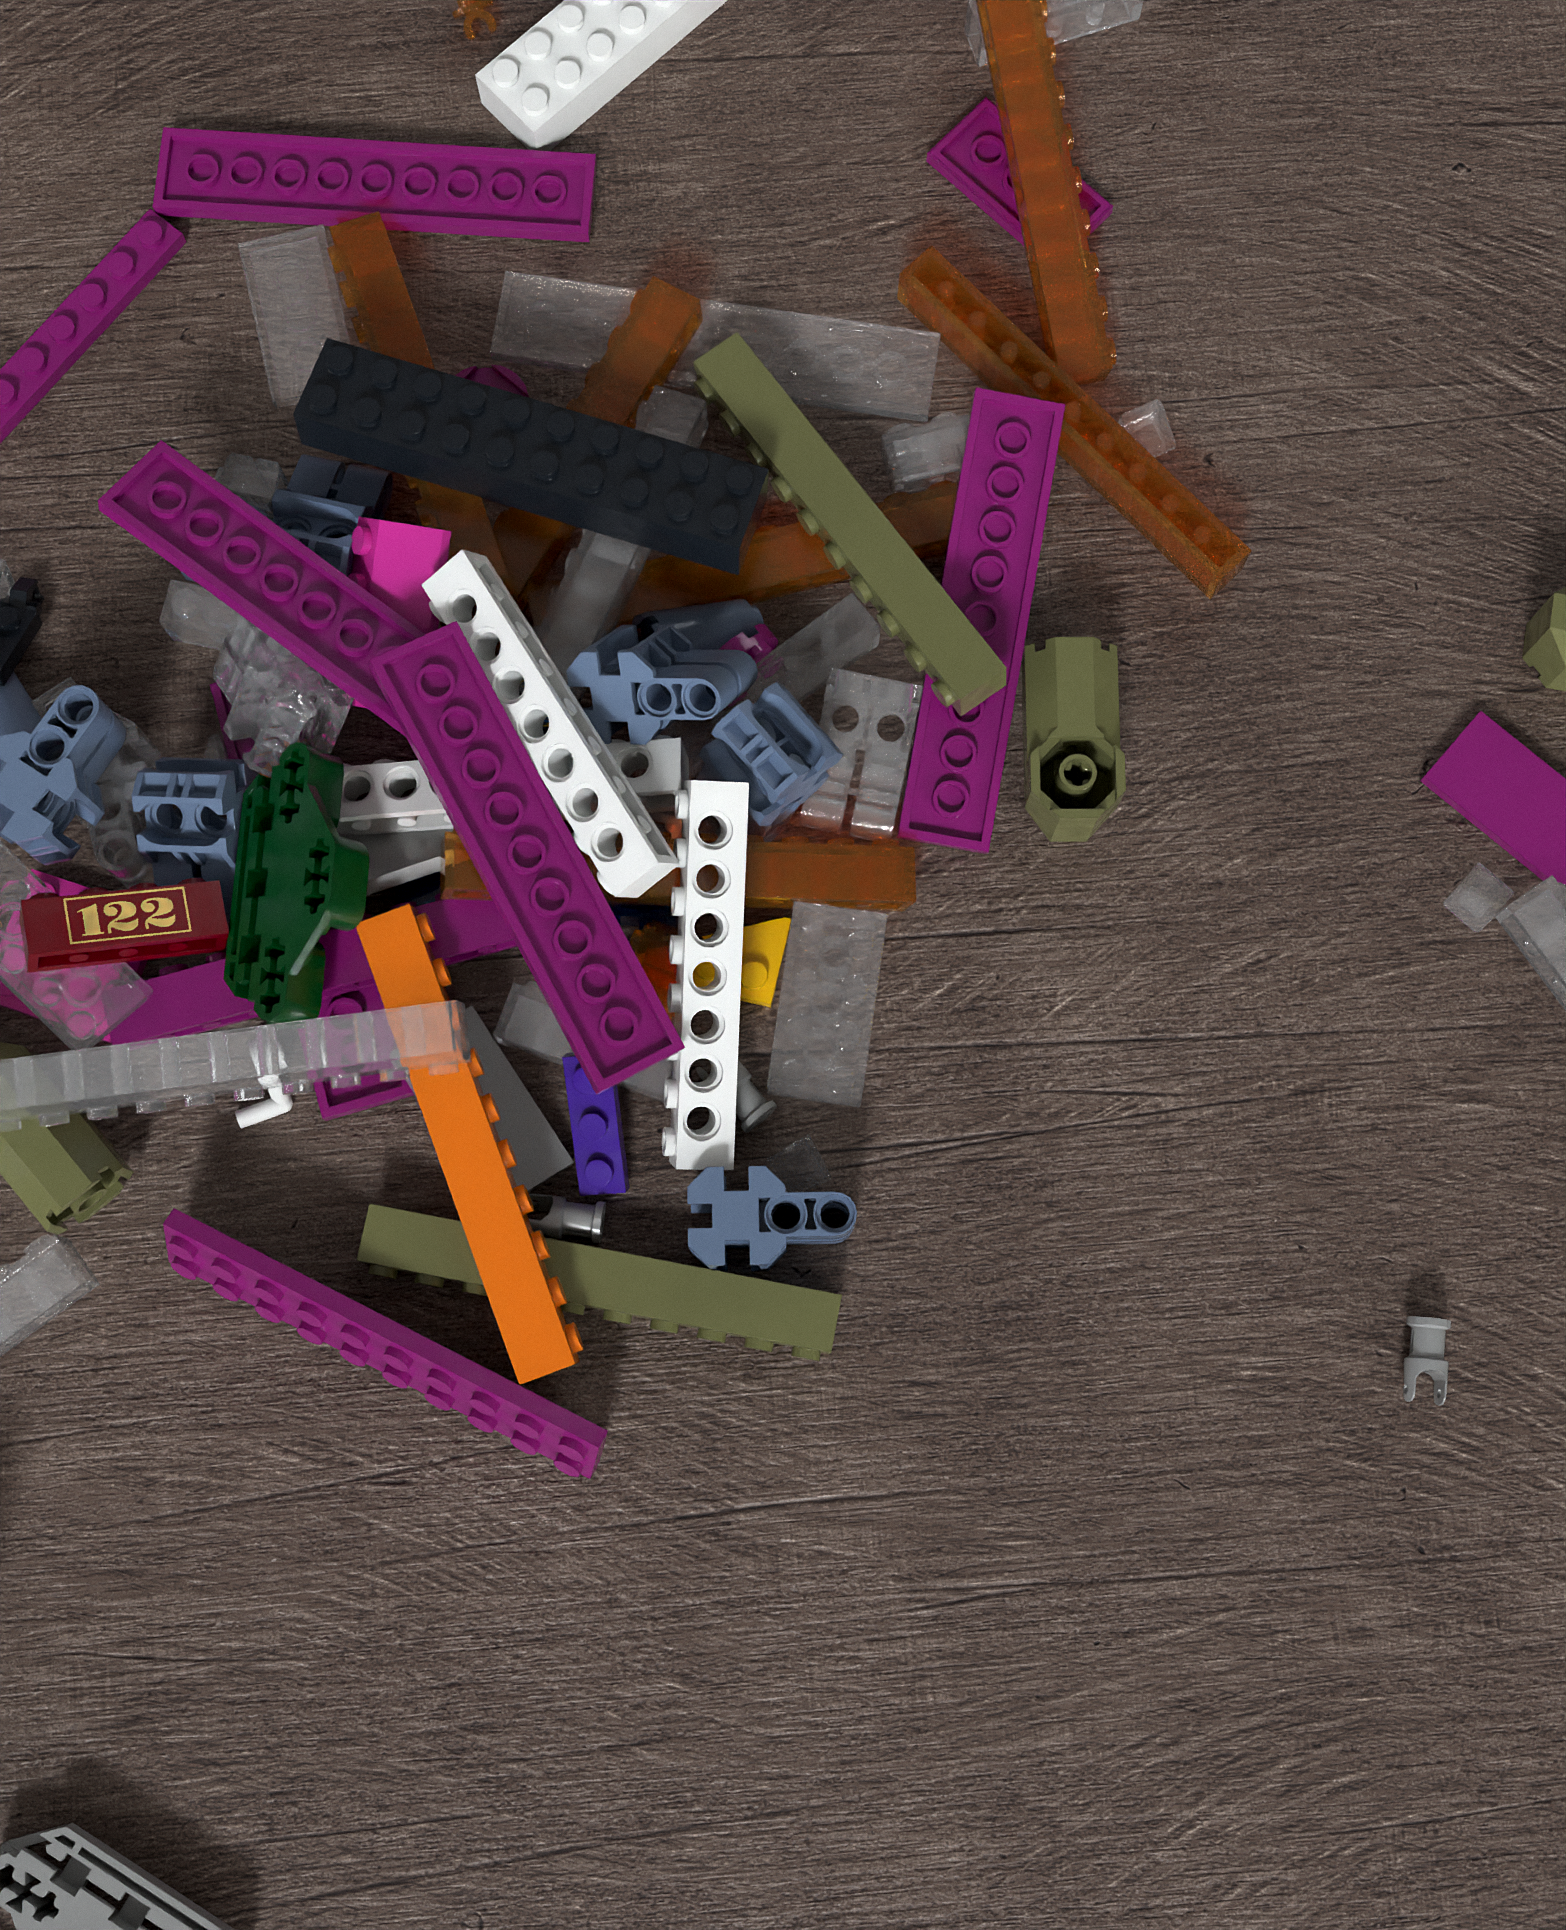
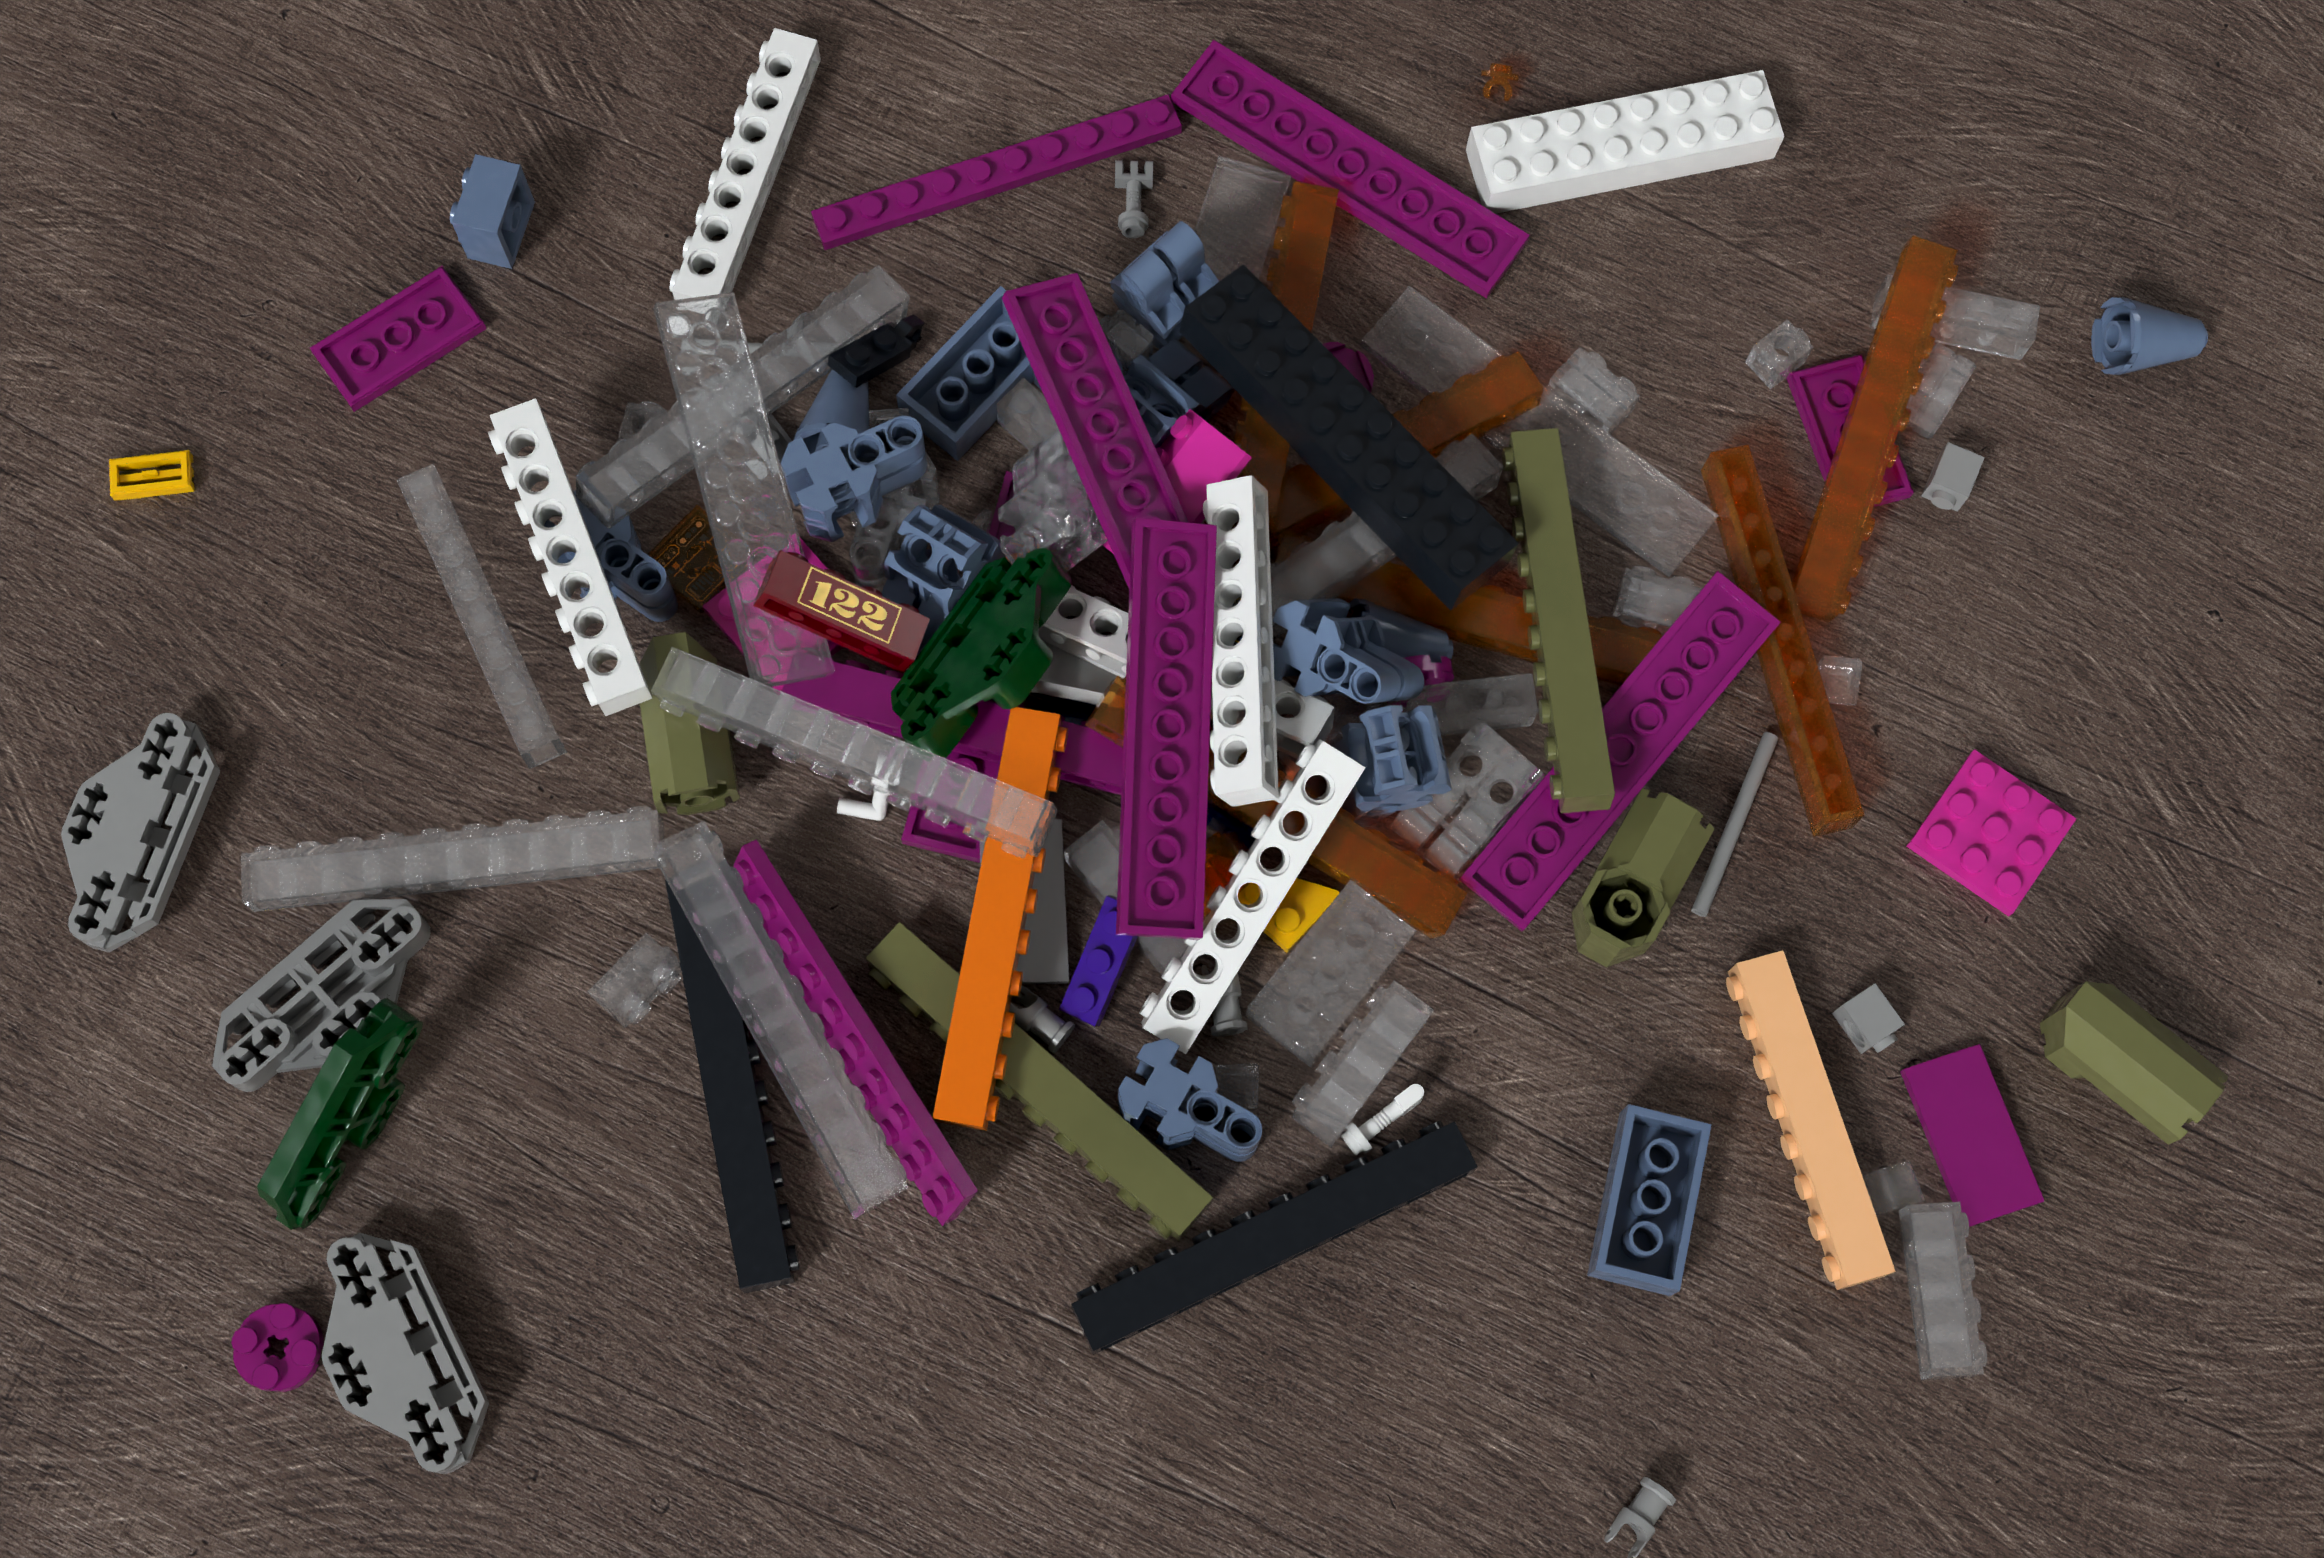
camera: 25 degrees right, 5 degrees down
(113, 613) = (966, 378): none -> sand blue brick
(137, 1418) = (636, 981): none -> clear bracket
(190, 357) = (1133, 222): none -> light grey hinge
(257, 401) = (1164, 282): none -> sand blue connector
(292, 1462) = (736, 1119): none -> black brick
(303, 1371) = (780, 1019): none -> clear brick
(748, 274) = (1594, 390): none -> clear brick
(904, 155) = (1770, 365): none -> clear brick
(908, 1074) = (1362, 1062): none -> clear brick
(921, 1299) = (1272, 1237): none -> black brick
(947, 1149) = (1358, 1137): none -> white hinge
(1083, 83) = (1941, 384): none -> clear brick
(1129, 630) = (1734, 824): none -> light grey piece
(1142, 170) = (1952, 477): none -> light grey brick
(1261, 1046) = (1649, 1200): none -> sand blue brick
(1366, 748) = (1869, 1020): none -> light grey brick
(1366, 879) = (1809, 1121): none -> light nougat brick
(1374, 499) = (1991, 832): none -> dark pink plate

